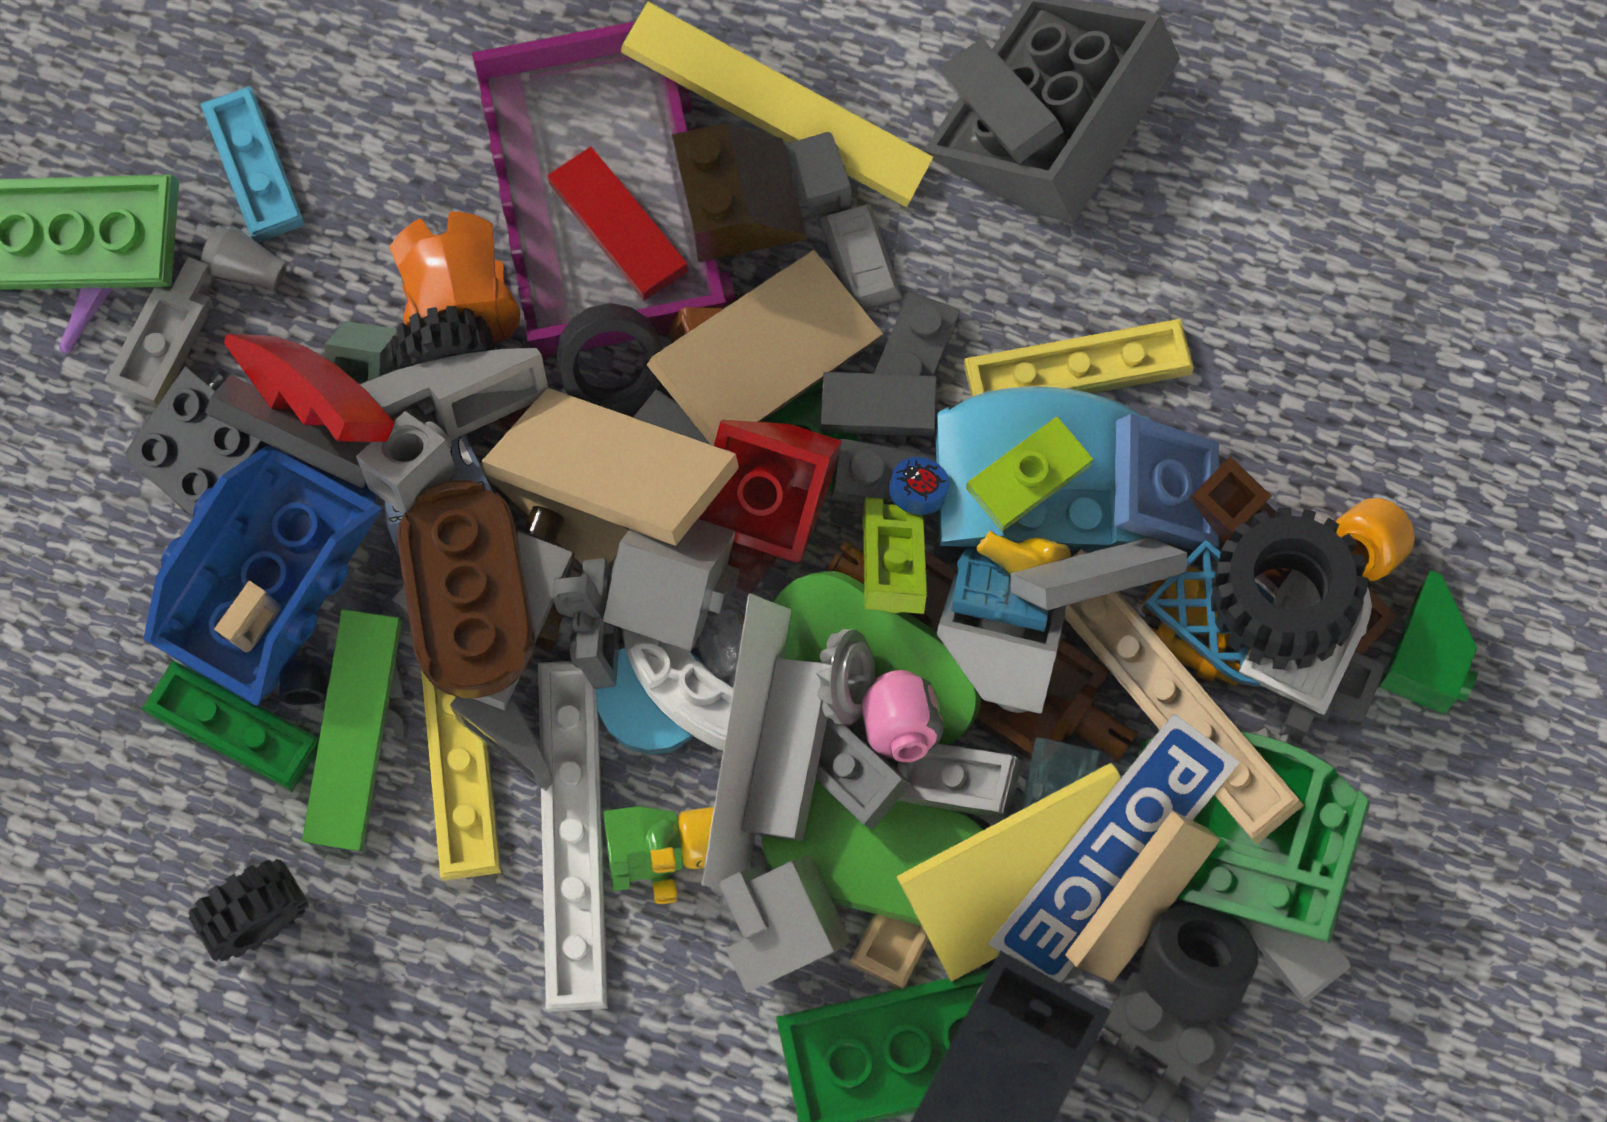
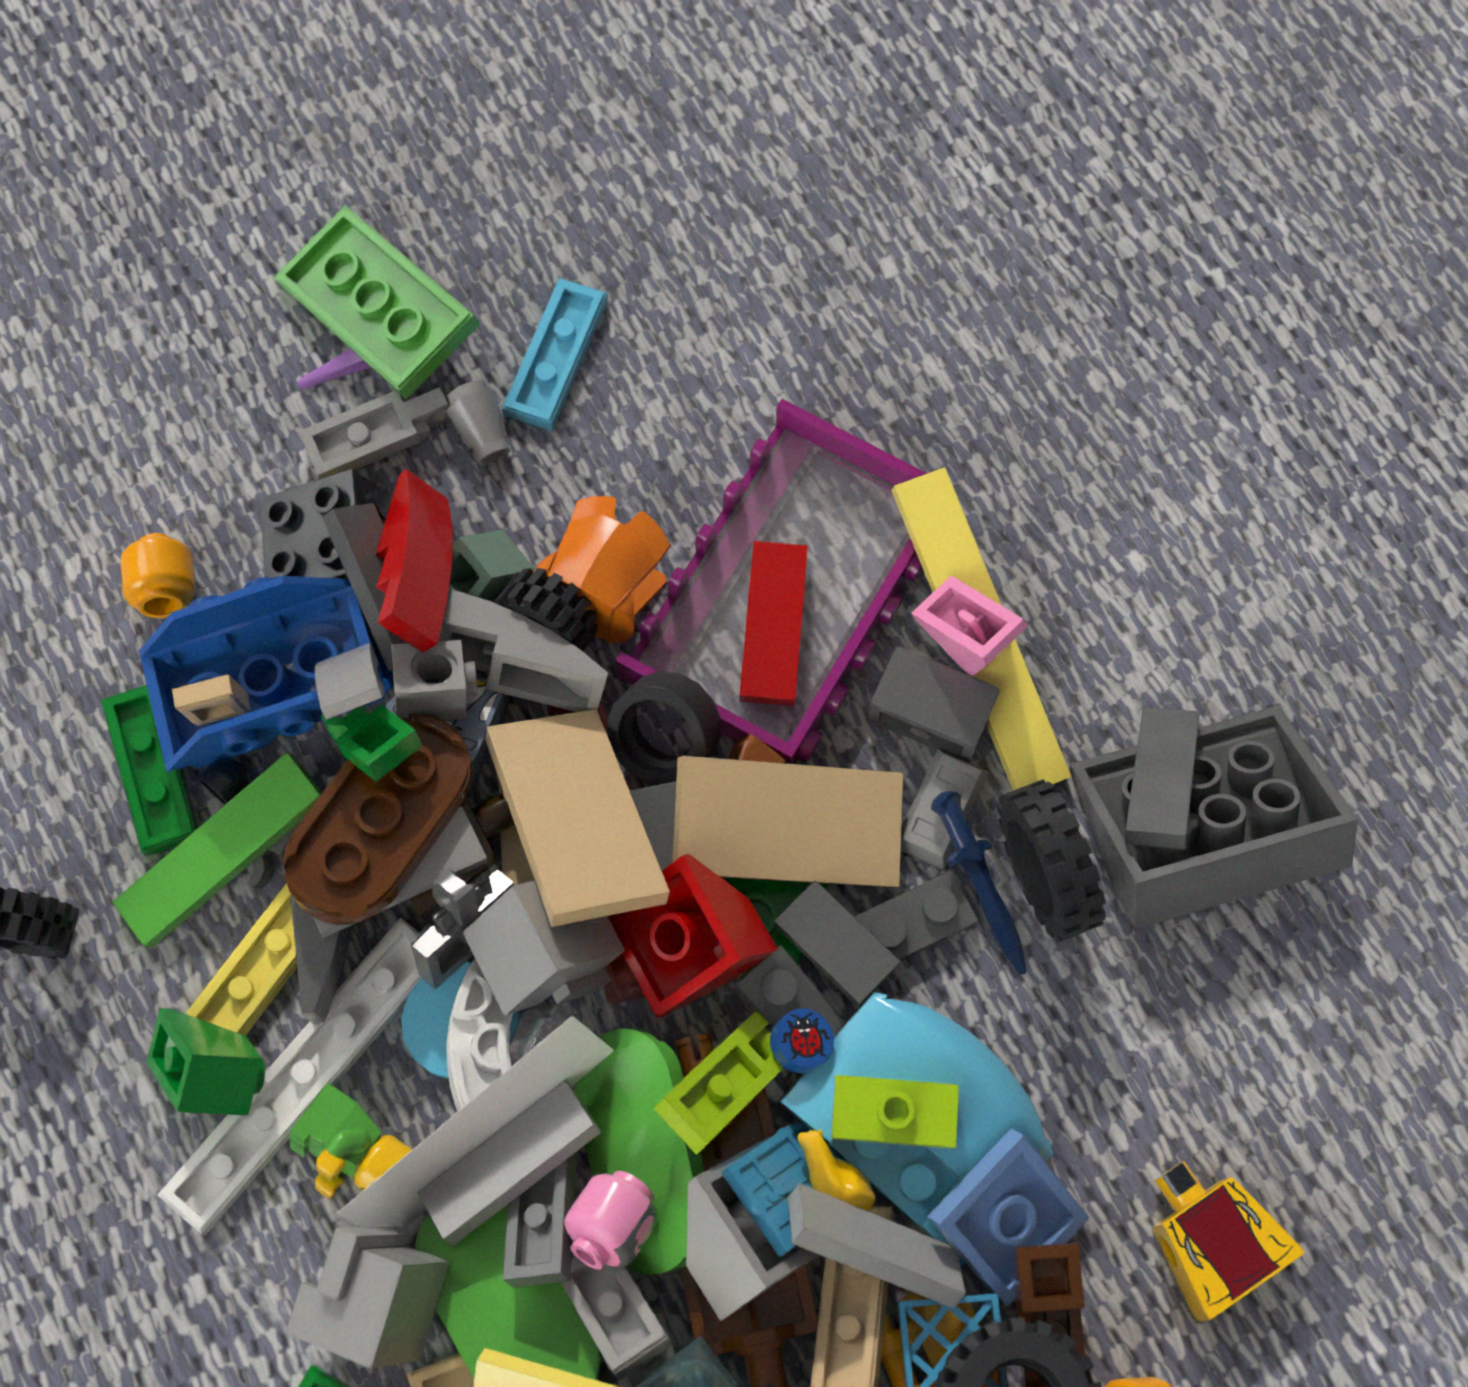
camera: 40 degrees right, 0 degrees up
(97, 578) = (157, 575): none -> light orange head
(350, 505) = (348, 681): none -> light grey slope
(412, 533) = (373, 740): none -> green plate
(492, 884) = (204, 1065): none -> green slope
(736, 190) = (876, 676): dark brown slope -> none
(772, 98) = (968, 624): none -> bright pink slope
(845, 676) = (583, 1151): light grey gear -> none
(913, 268) = (971, 858): none -> dark blue sword
(1018, 219) = (1051, 860): none -> black tyre
(1088, 362) = (1042, 1053): light yellow tile -> none
(1316, 381) = (1218, 1241): none -> torso

